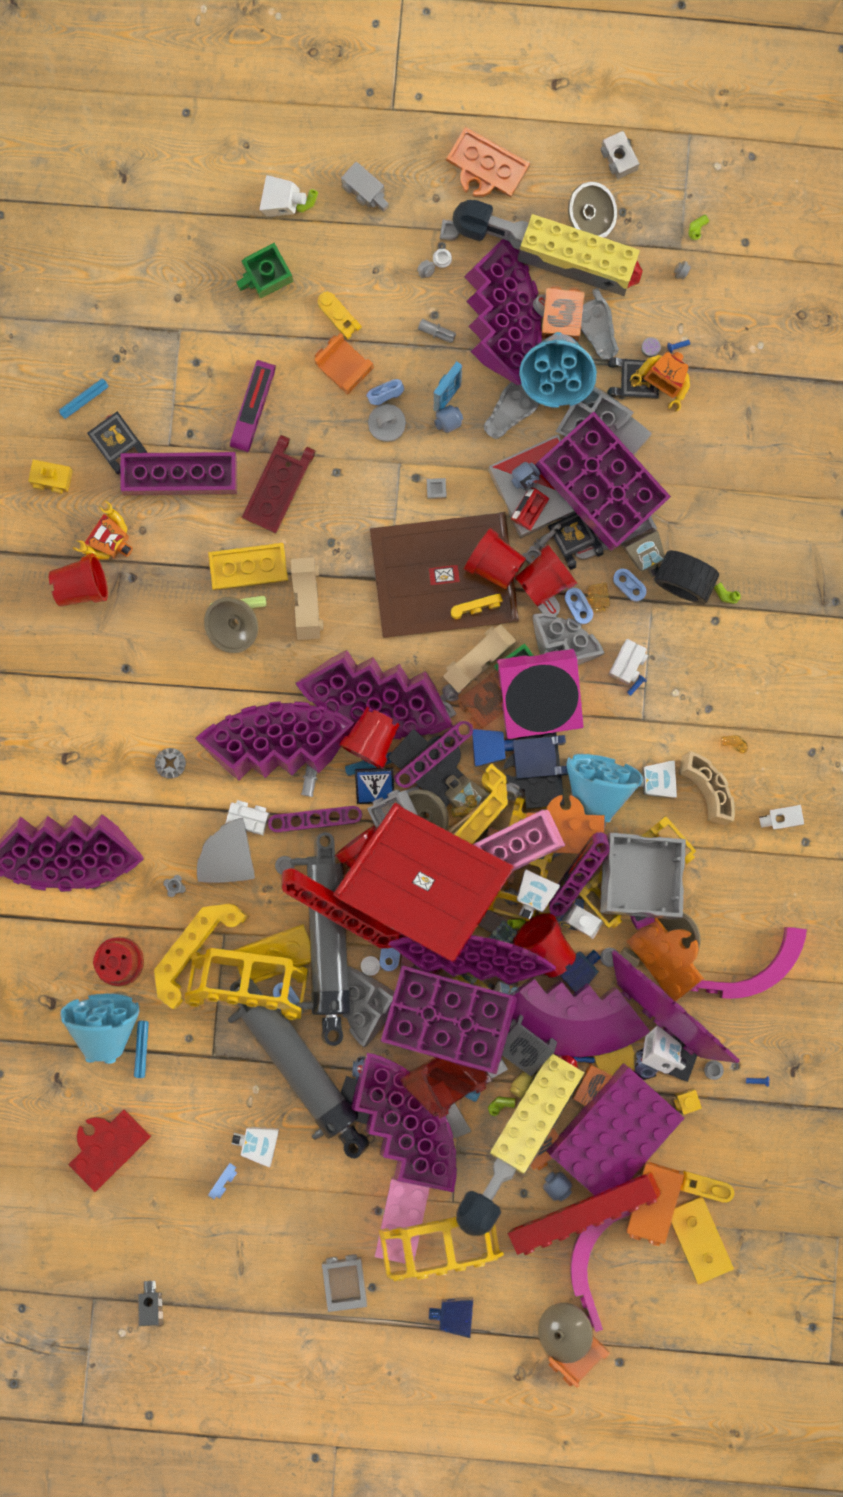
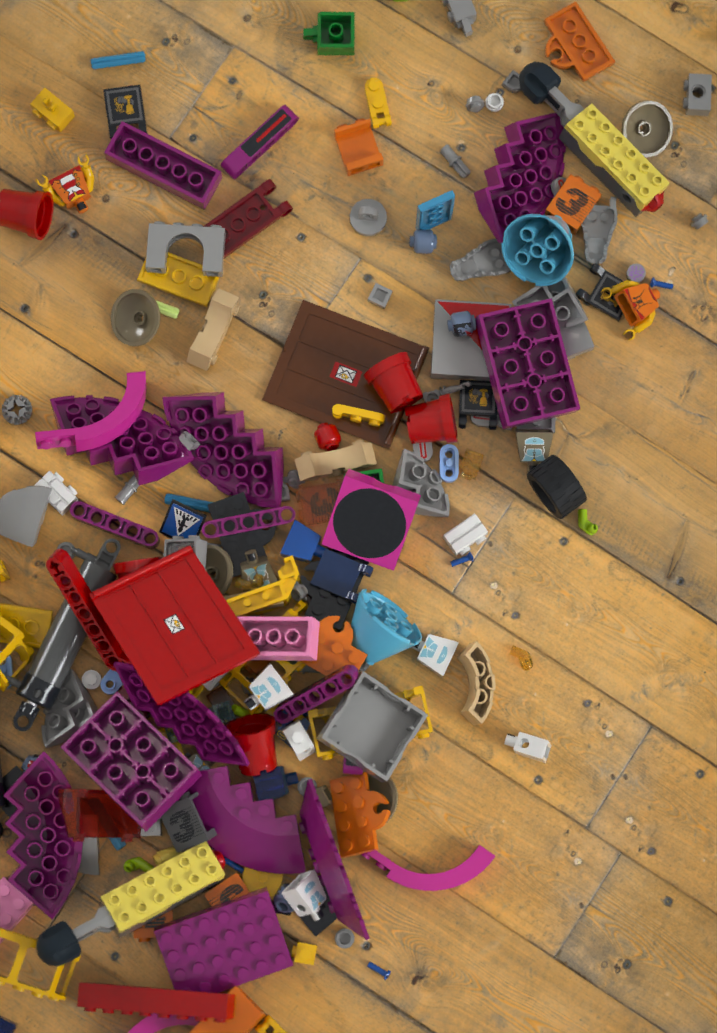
camera: 25 degrees right, 5 degrees down
(215, 537) = (163, 235): none -> light grey arch
(263, 739) = (106, 429): none -> dark pink arch
(340, 710) = (189, 441): none -> light grey tile
(371, 738) = (201, 478): red piece -> none
(385, 392) = (381, 189): light blue plate -> none
(459, 640) = (327, 437): none -> red head
(530, 508) = (451, 354): red slope -> none
(557, 1186) = (147, 965): sand blue head -> none
(629, 585) = (504, 469): light blue plate -> none

